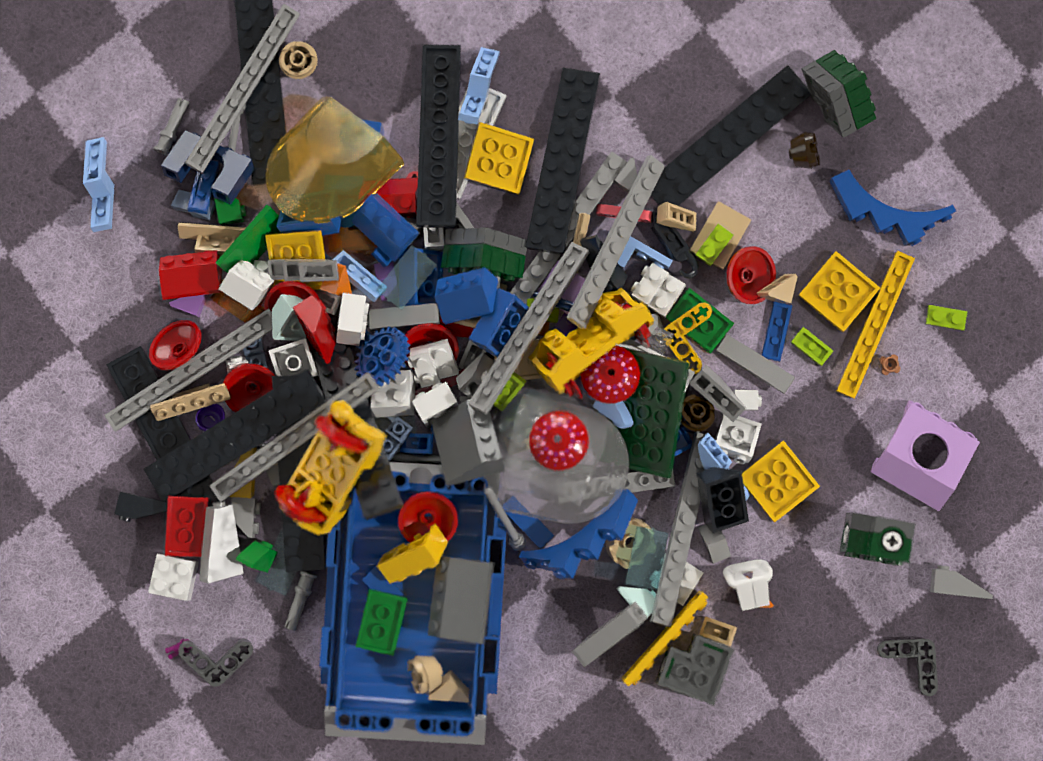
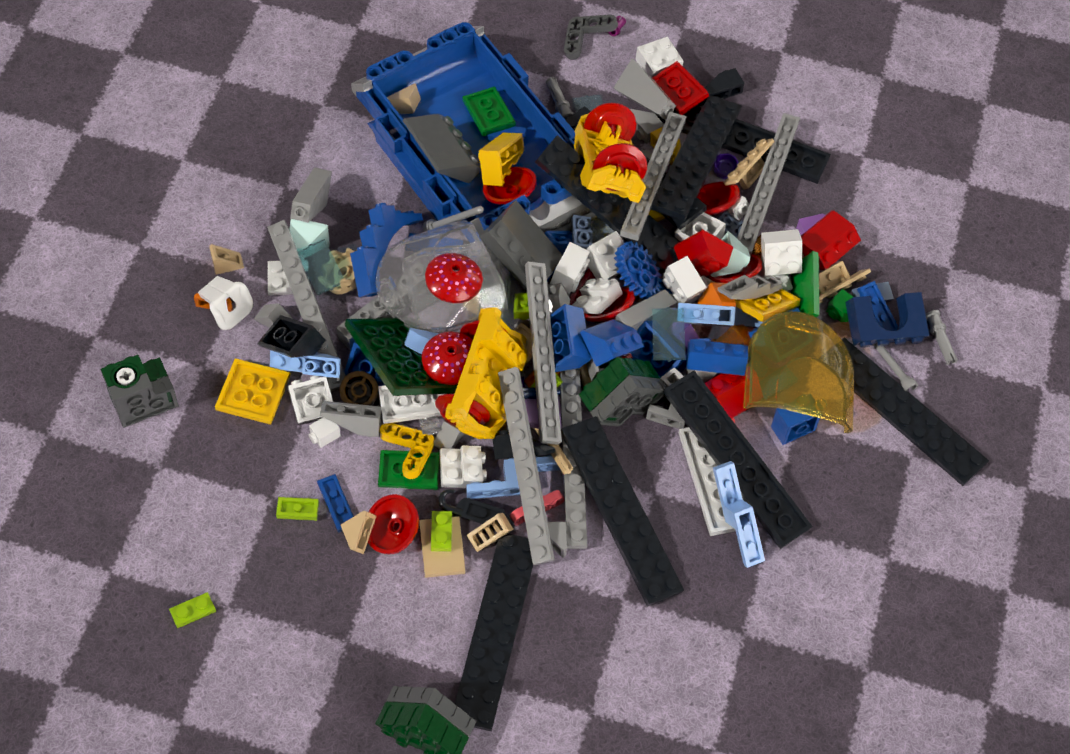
camera: 140 degrees right, 25 degrees down
(98, 184) = (952, 258): light blue bracket -> none
(175, 345) = (794, 191): red dish -> none
(242, 89) = (917, 391): light grey plate -> none
(258, 556) = (614, 93): green slope -> none
(298, 60) = (896, 442): tan cone -> none
(425, 673) = (430, 93): tan cone -> none
(498, 158) = (674, 478): yellow plate -> none
(659, 645) = (267, 218): yellow plate -> none
(697, 671) = (227, 216): dark grey piece -> none
(755, 364) = (336, 462): light grey slope -> none
(804, 151) = (419, 658): dark brown cone -> none
(839, 291) = (304, 567): yellow plate -> none
(875, 324) = (253, 563): yellow plate -> none
(893, 359) = (214, 535): nougat plate -> none
(900, 468) = (157, 507): lavender panel -> none
(908, 224) = (278, 662): blue arch -> none
(915, 652) = (50, 341): dark grey beam -> none
(953, 583) = (48, 405): light grey slope -> none

